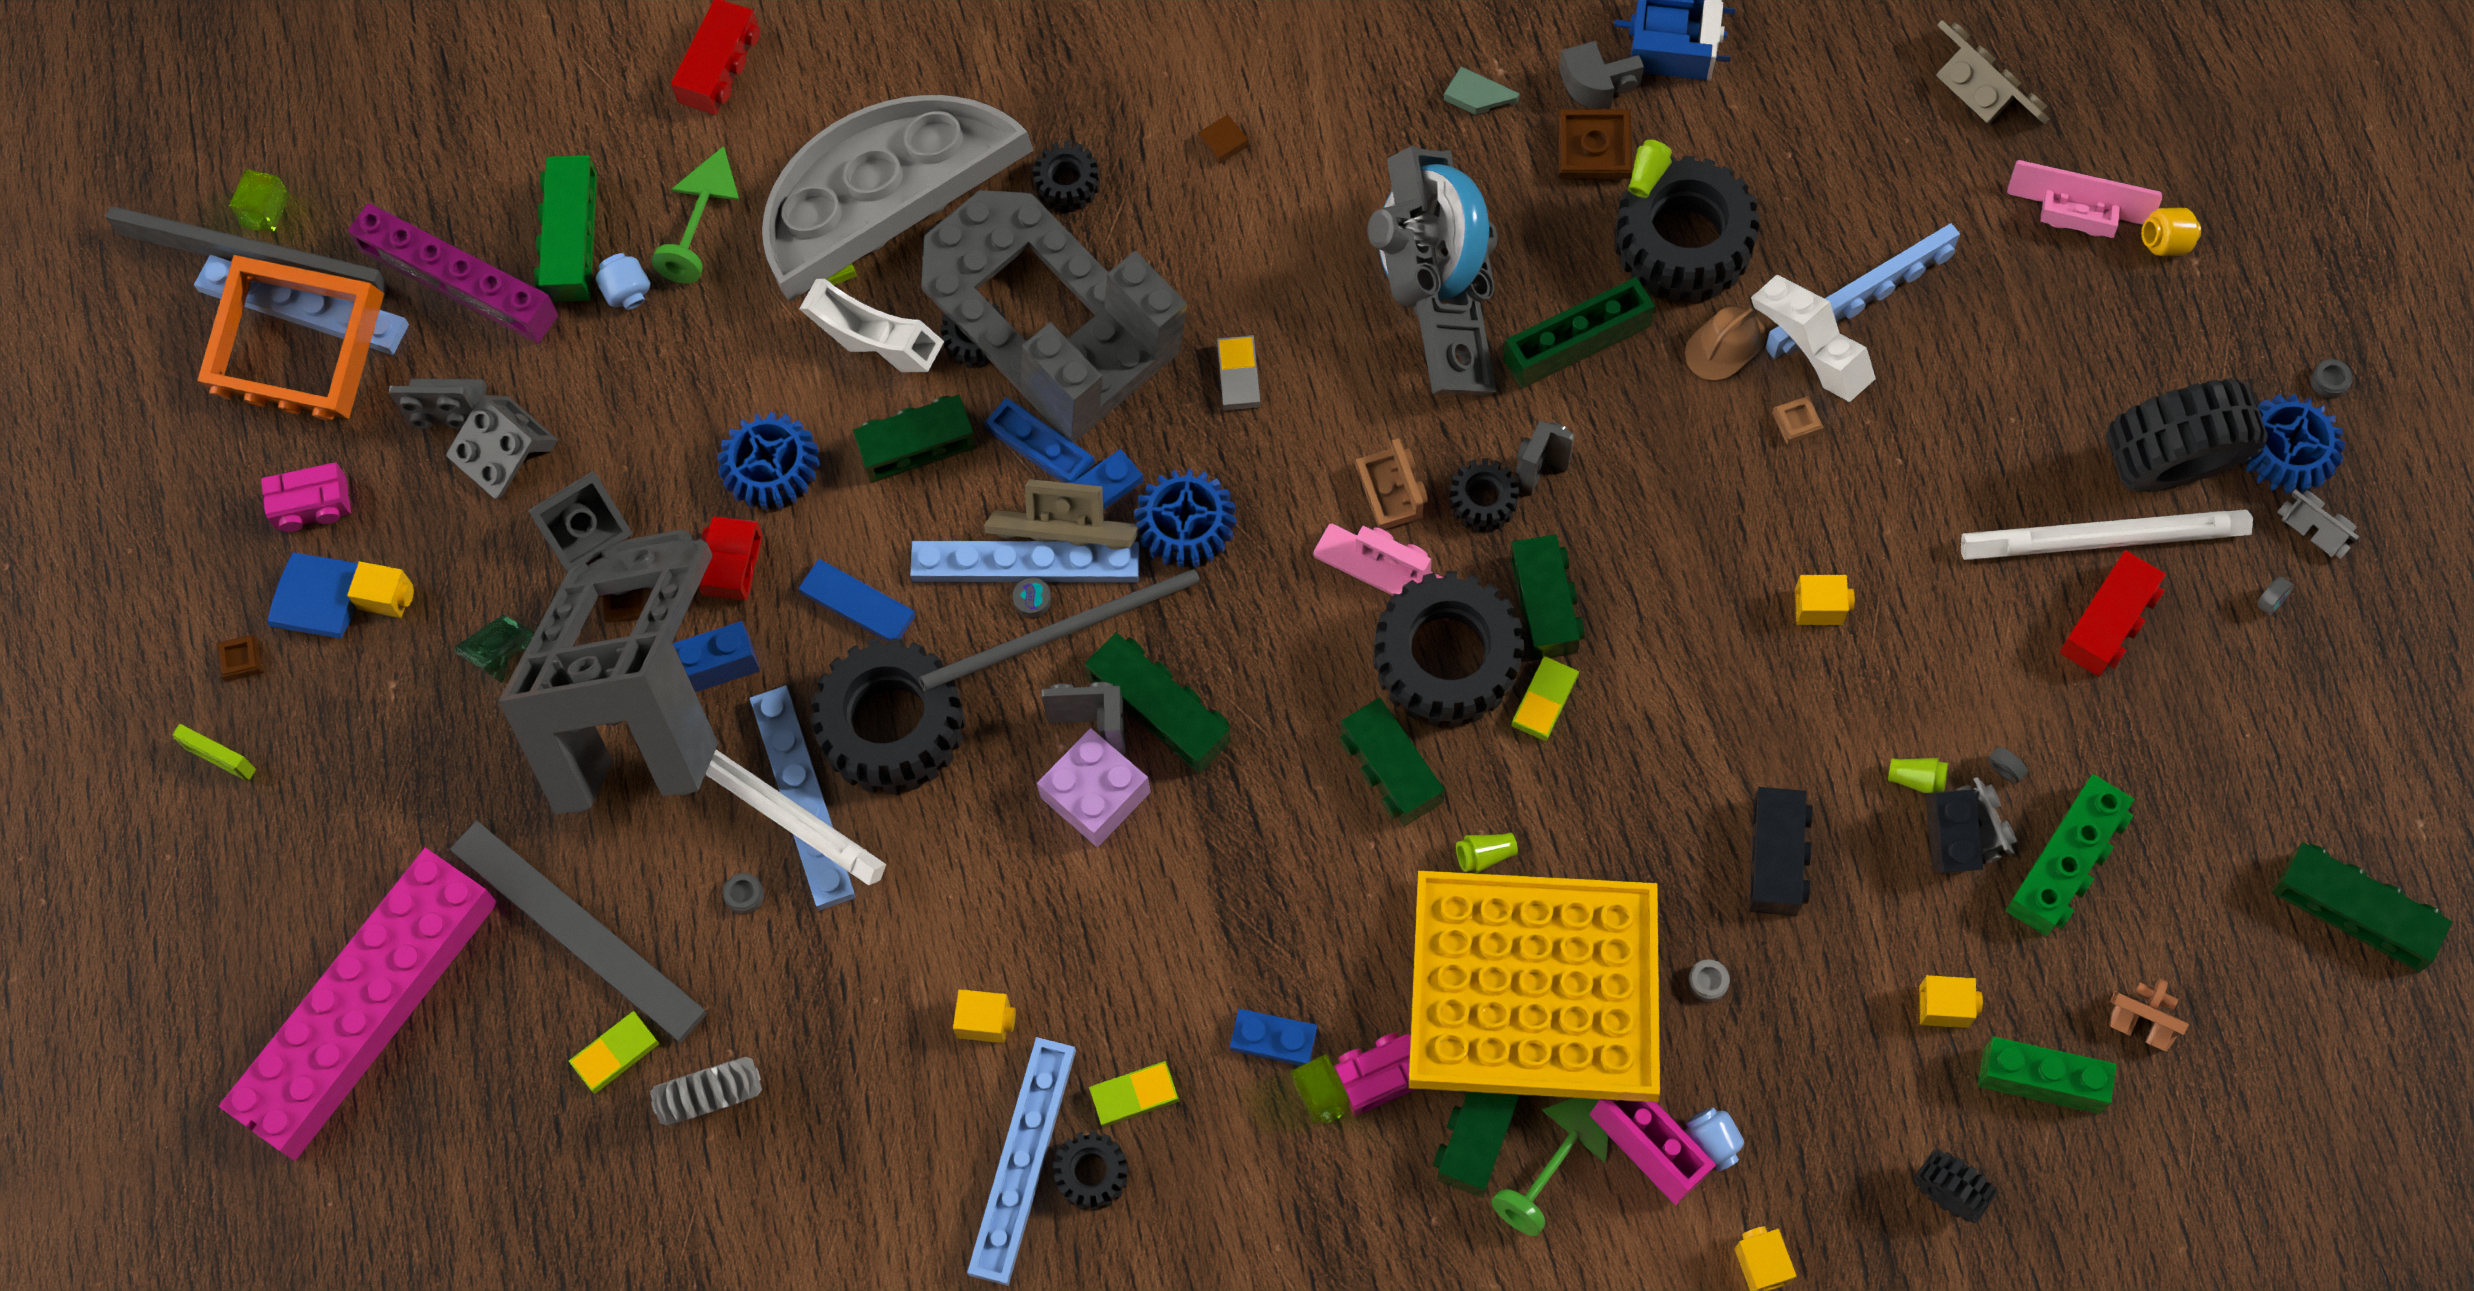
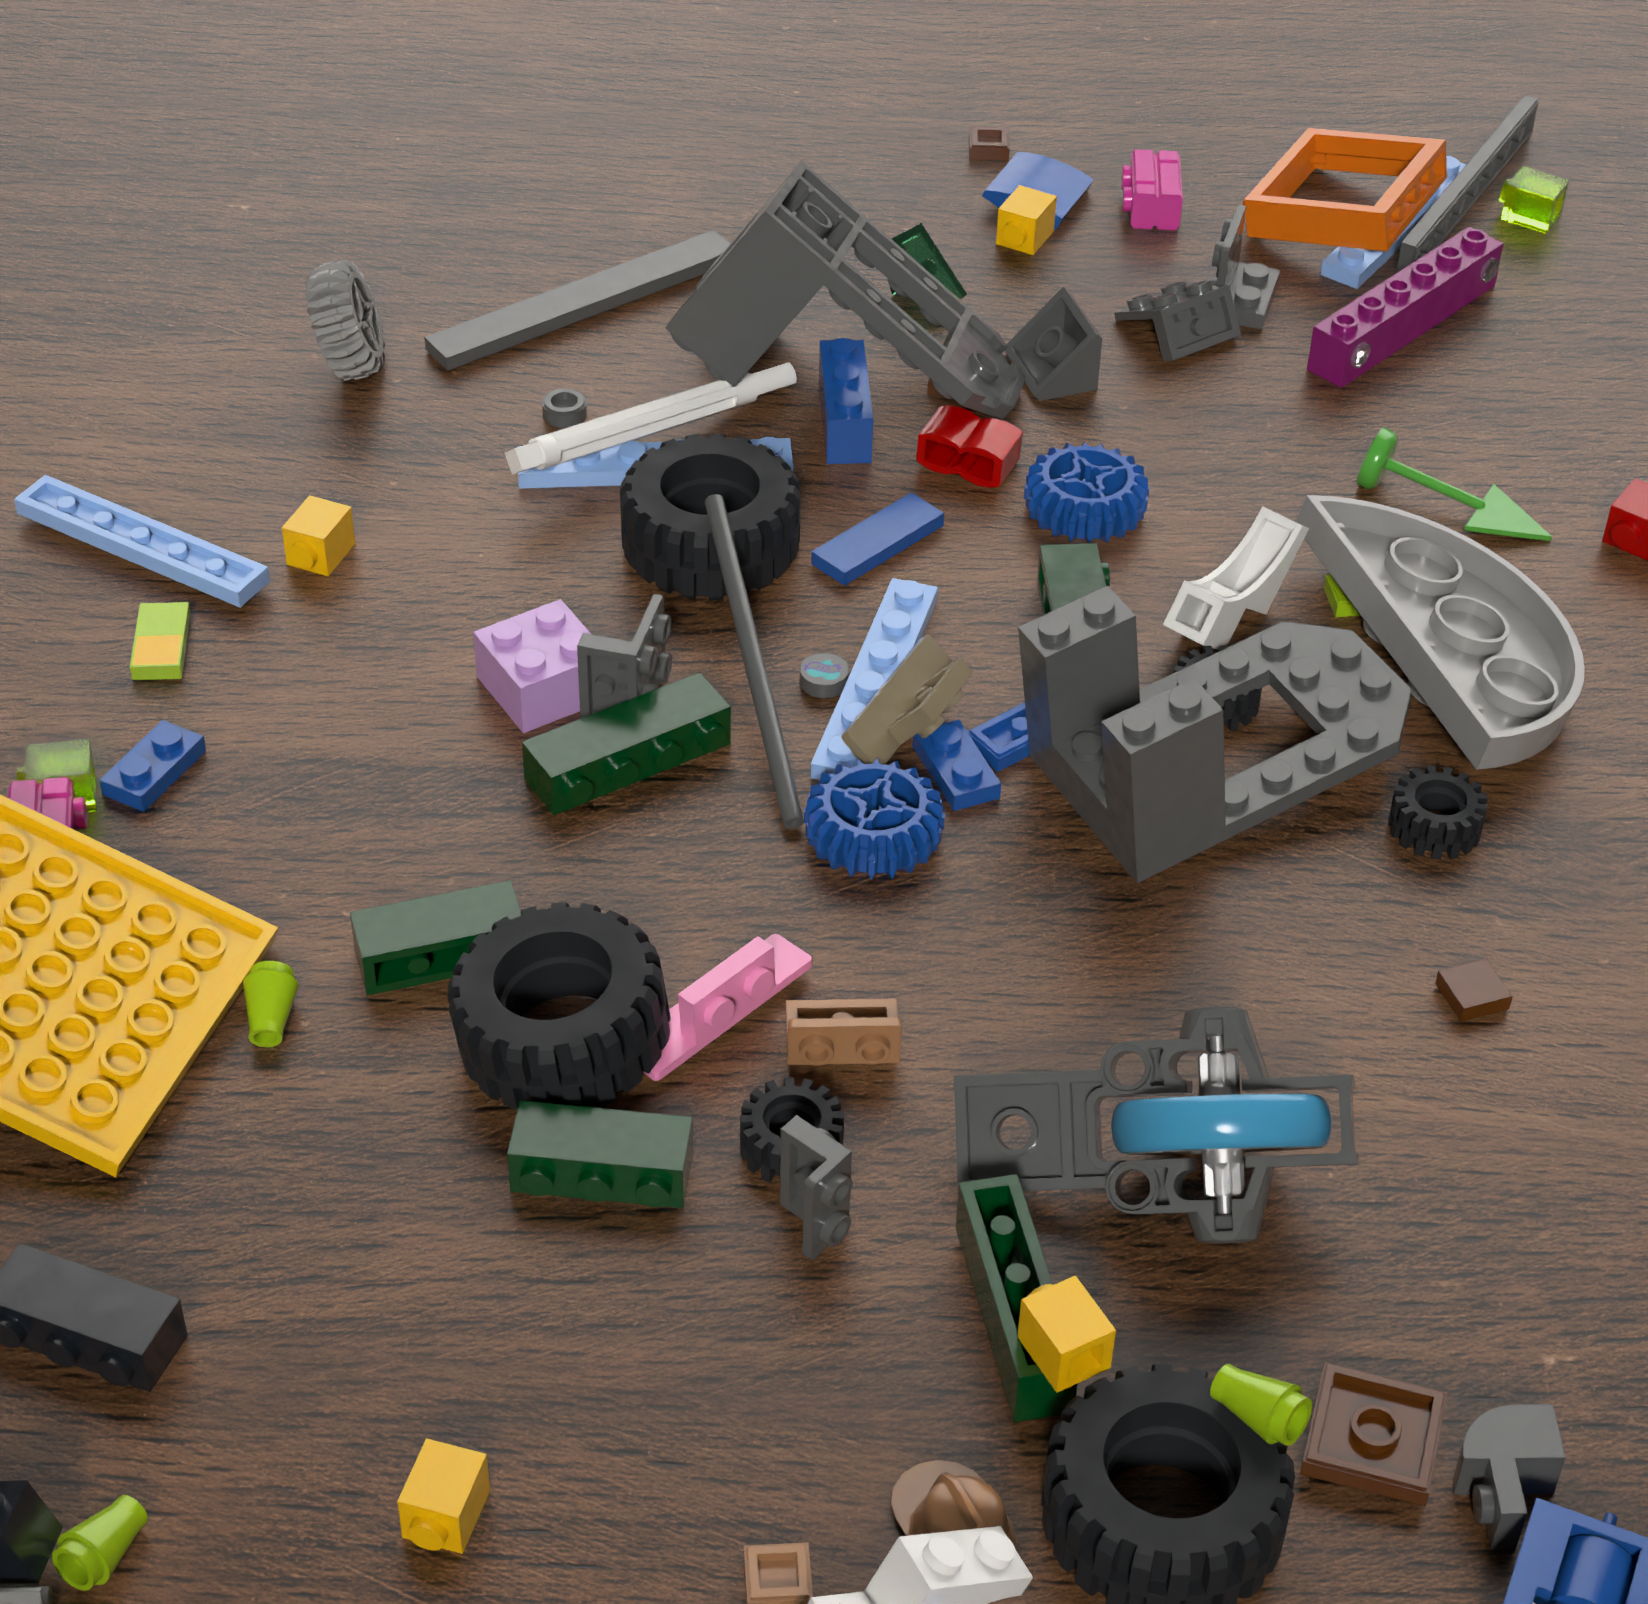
camera: 100 degrees right, 25 degrees down
(214, 752) = (886, 111): lime tile -> none
(359, 1004) = (579, 158): dark pink piece -> none
(566, 228) = (1446, 386): green brick -> none
(614, 1052) = (438, 301): lime tile -> none
(622, 281) = (1362, 417): light blue head -> none
(1073, 1153) = (93, 586): black tyre -> none
(1238, 373) = (1081, 925): light grey tile -> none
(1478, 93) = (1506, 1307): sand green tile -> none
(1545, 698) = (454, 1128): lime tile -> none
(1630, 278) = (1066, 1333): none -> yellow brick

